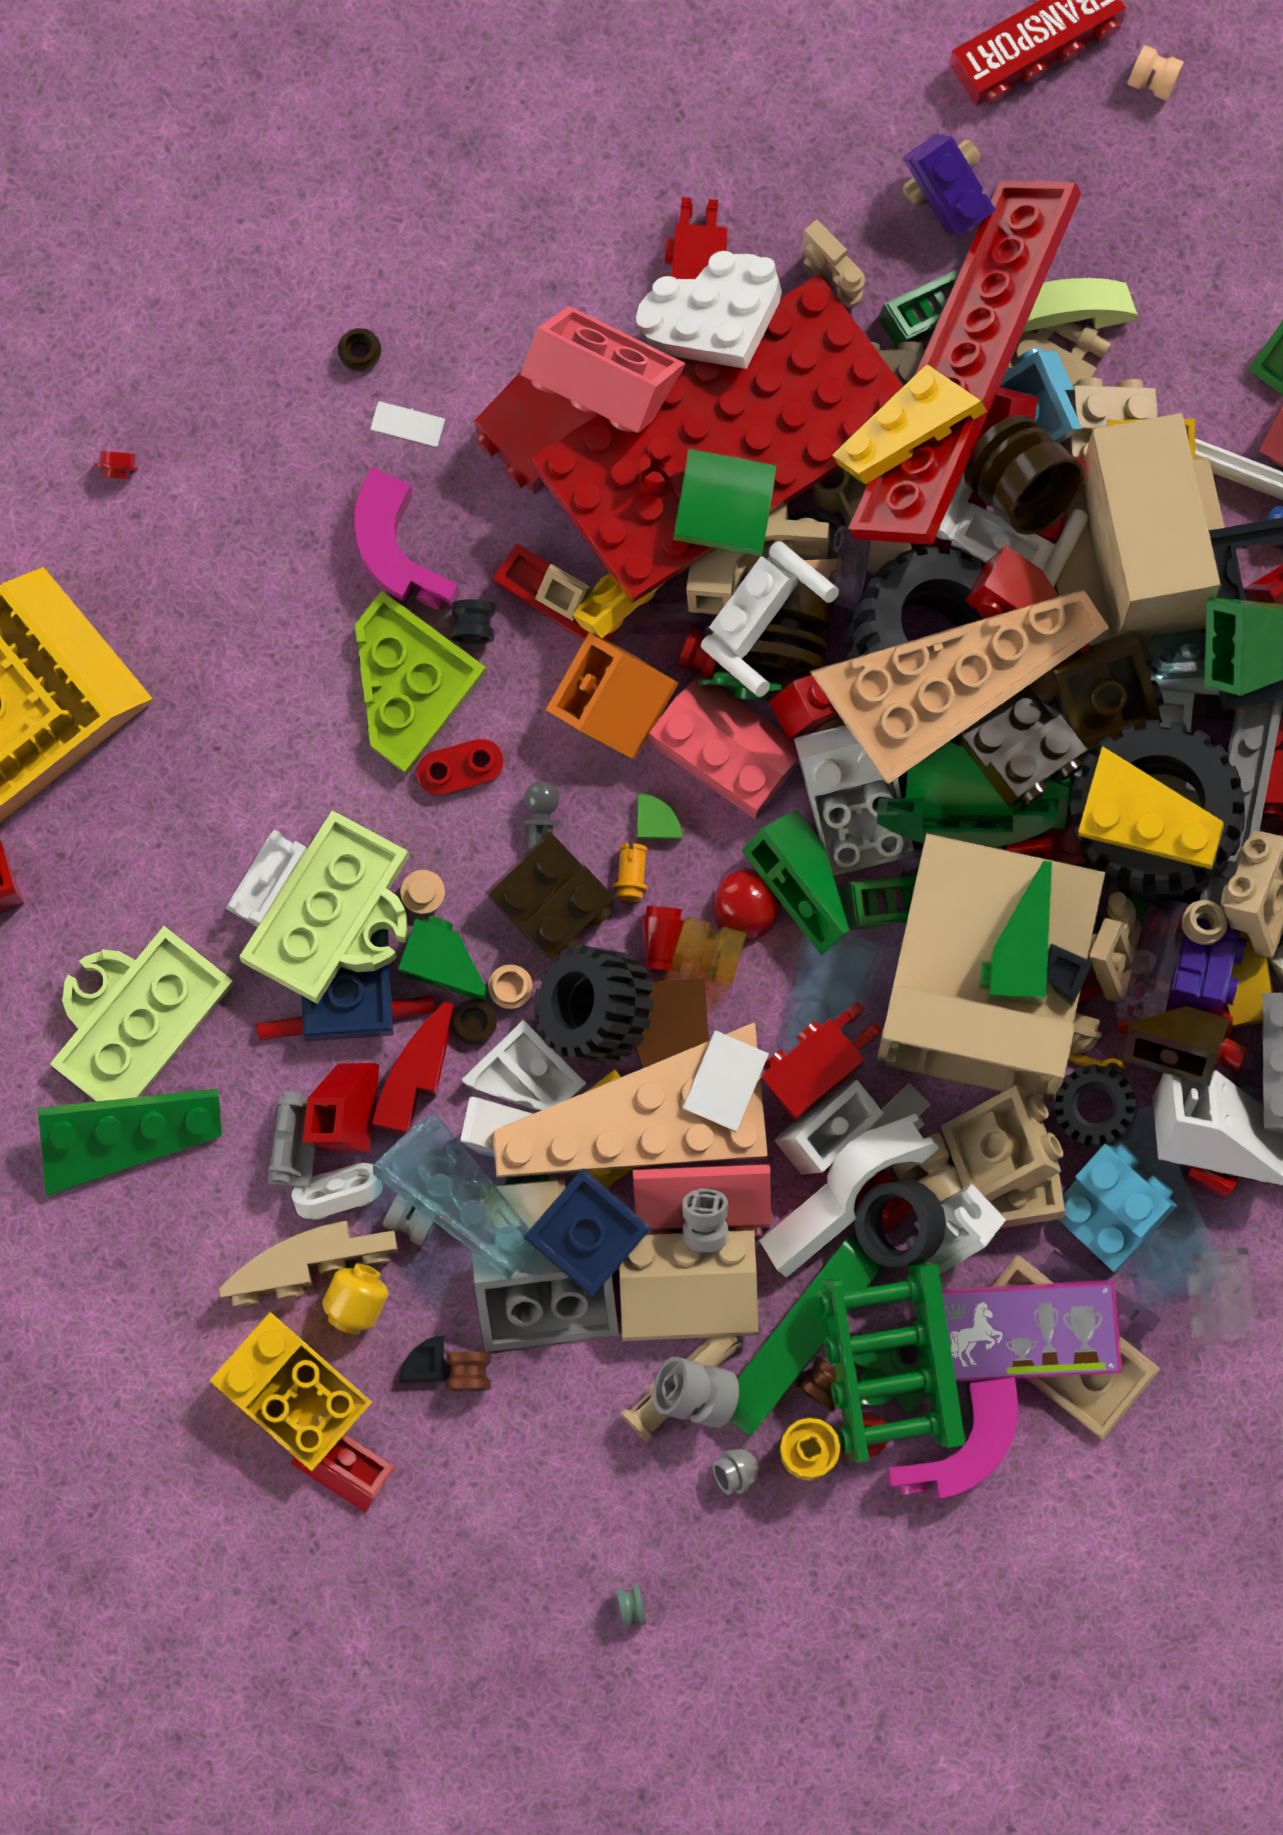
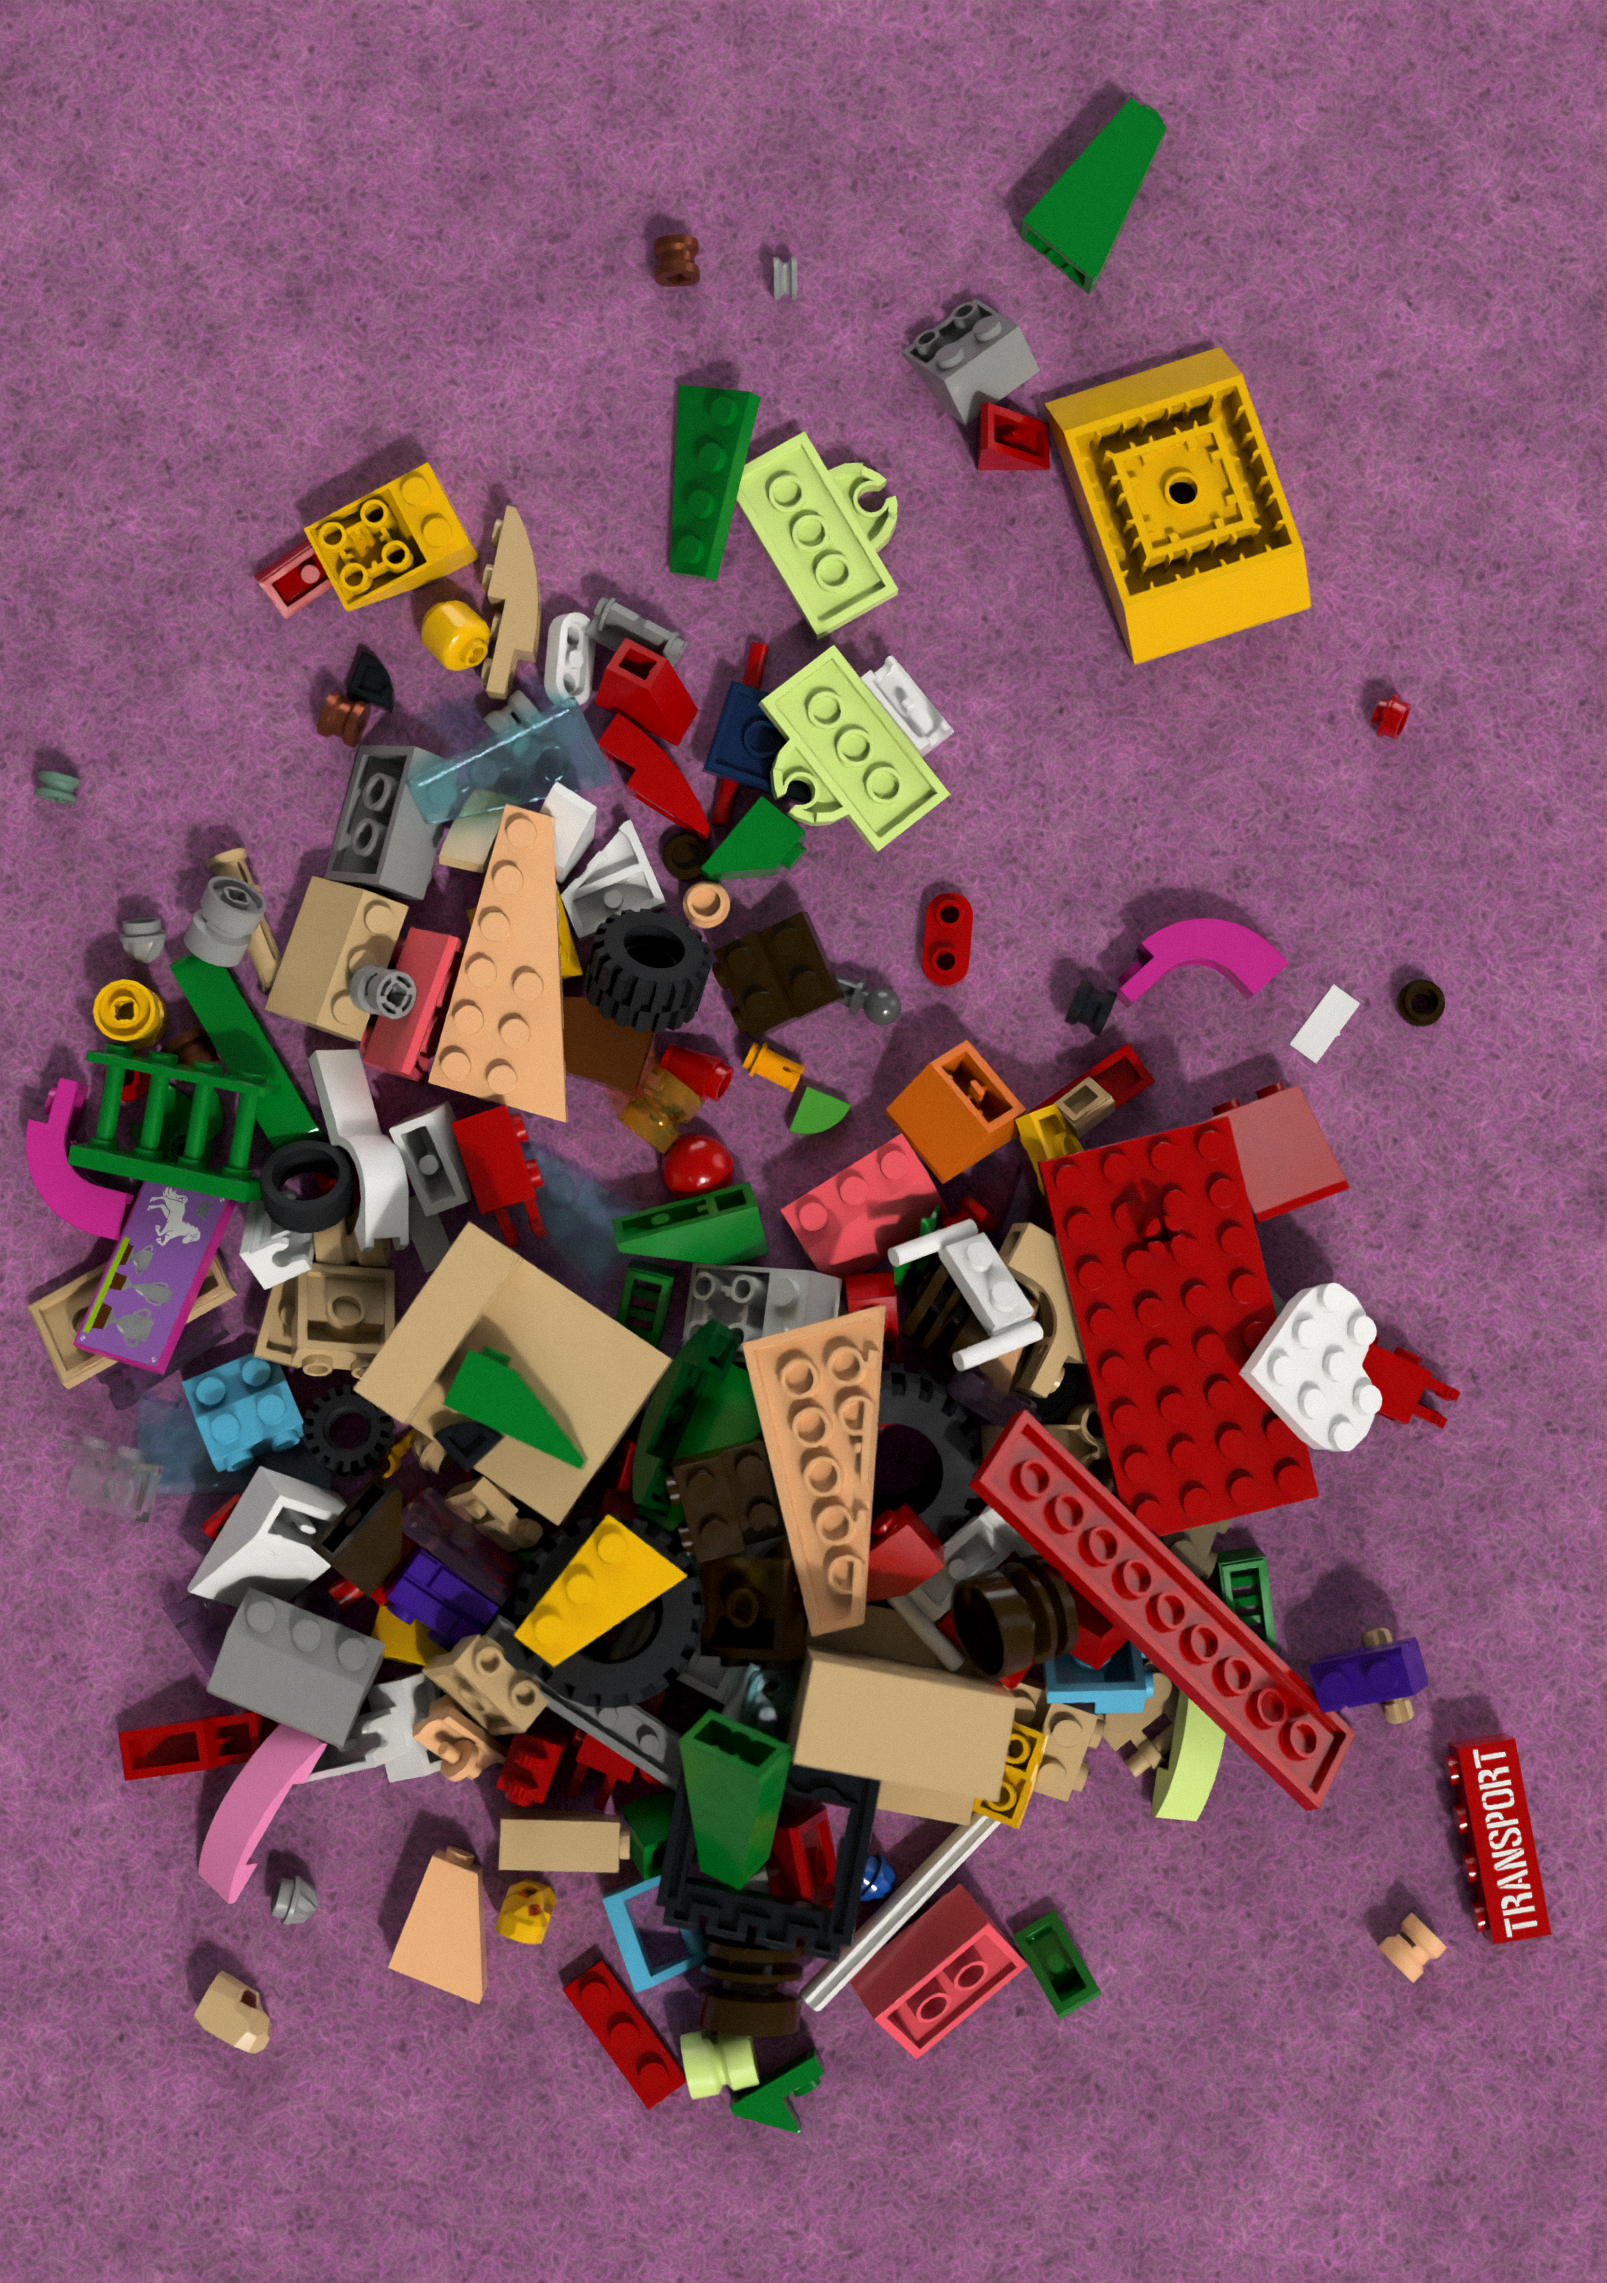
camera: 110 degrees right, 5 degrees up
(409, 680) = (1055, 921): lime plate -> none
(422, 892) = (835, 854): light nougat plate -> none
(587, 1232) = (416, 871): dark blue plate -> none
(600, 369) = (1295, 1222): coral slope -> none
(724, 502) = (1102, 1293): green slope -> none
(725, 1080) = (514, 1067): white sticker -> none
(828, 257) = (1334, 1513): tan plate -> none
(908, 419) = (1118, 1520): yellow wing -> none
(1211, 912) = (481, 1626): tan plate -> none

